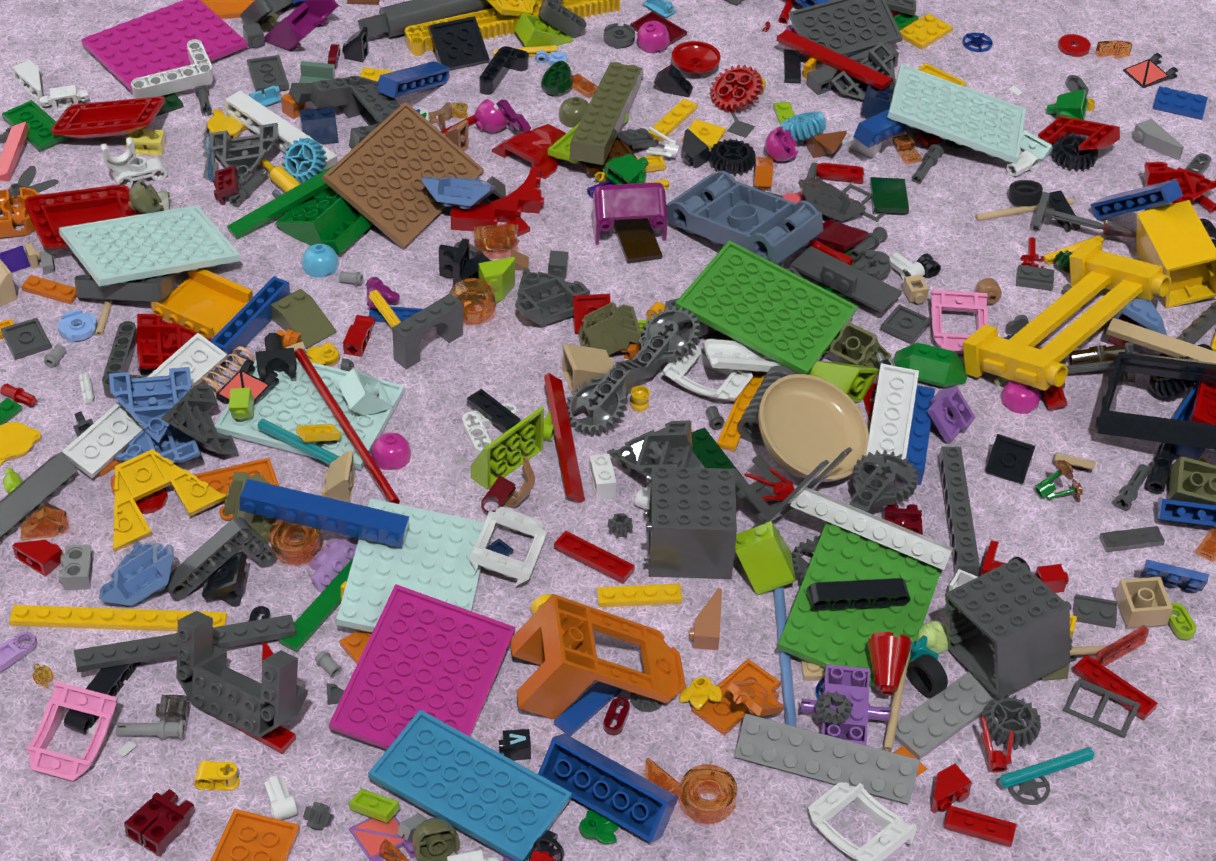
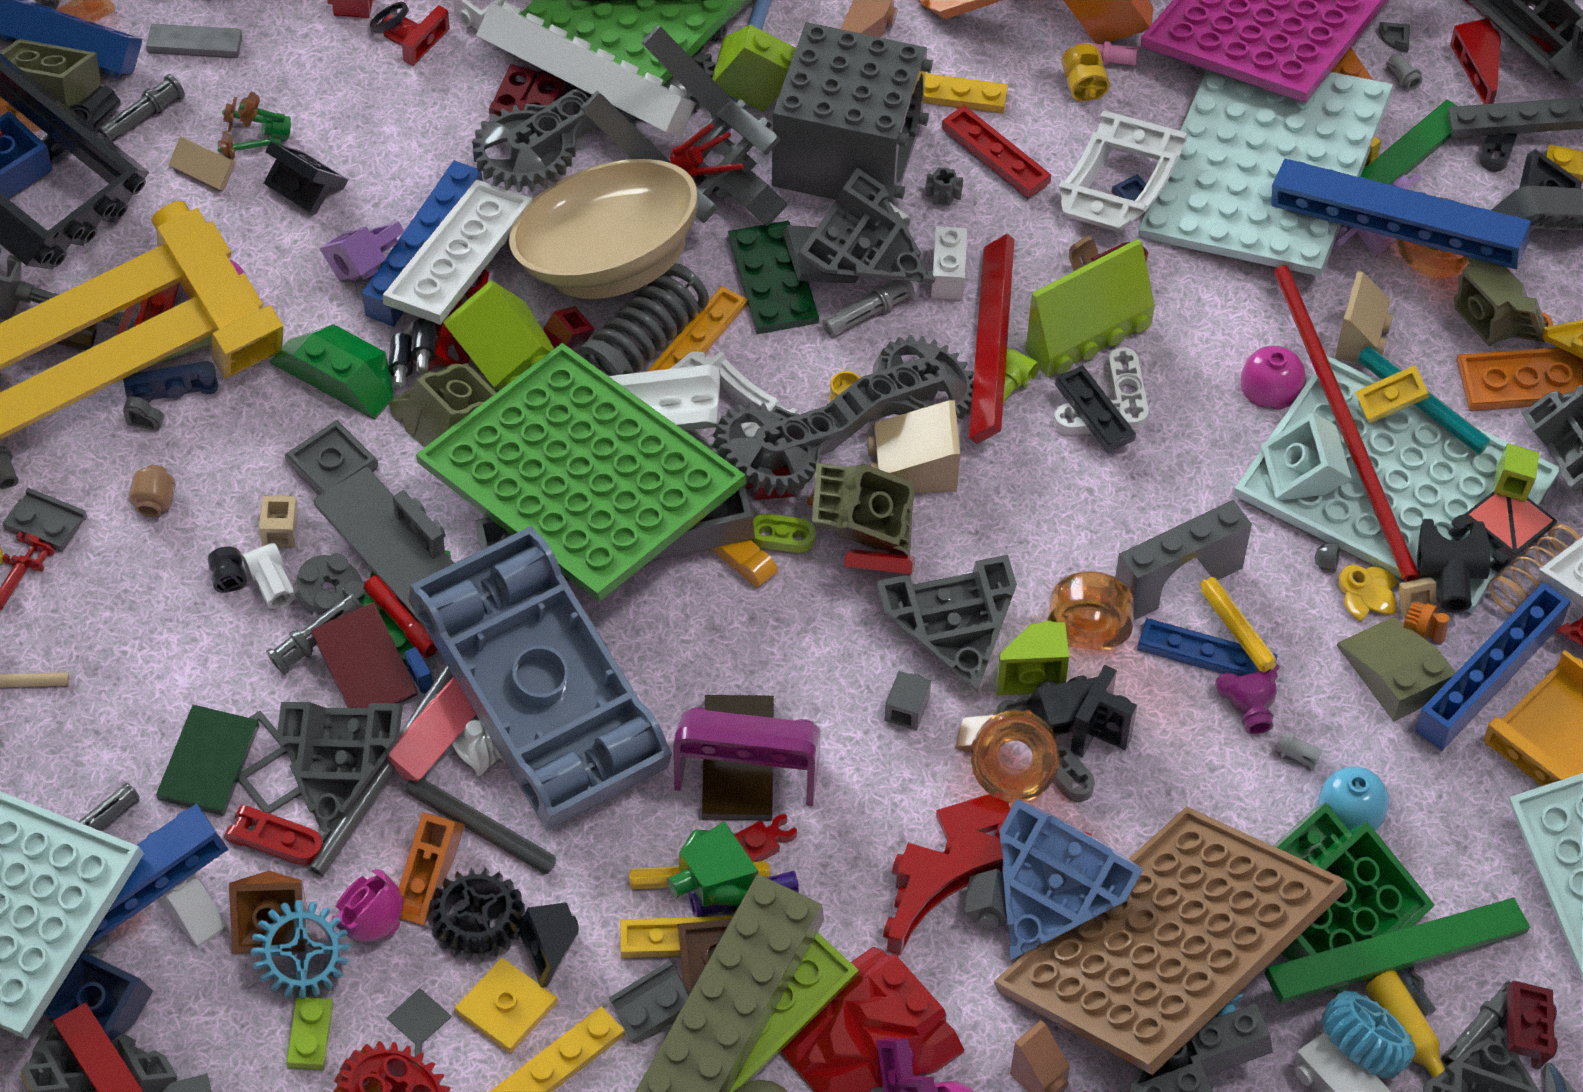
camera: 165 degrees left, 10 degrees up
(358, 335) = (1300, 613): red piece -> none
(670, 150) = (600, 957): white plant -> none
(716, 421) = (733, 336): dark grey pin -> none
(956, 301) = (199, 457): bright pink wedge -> none
(958, 510) = (429, 112): dark grey brick -> none

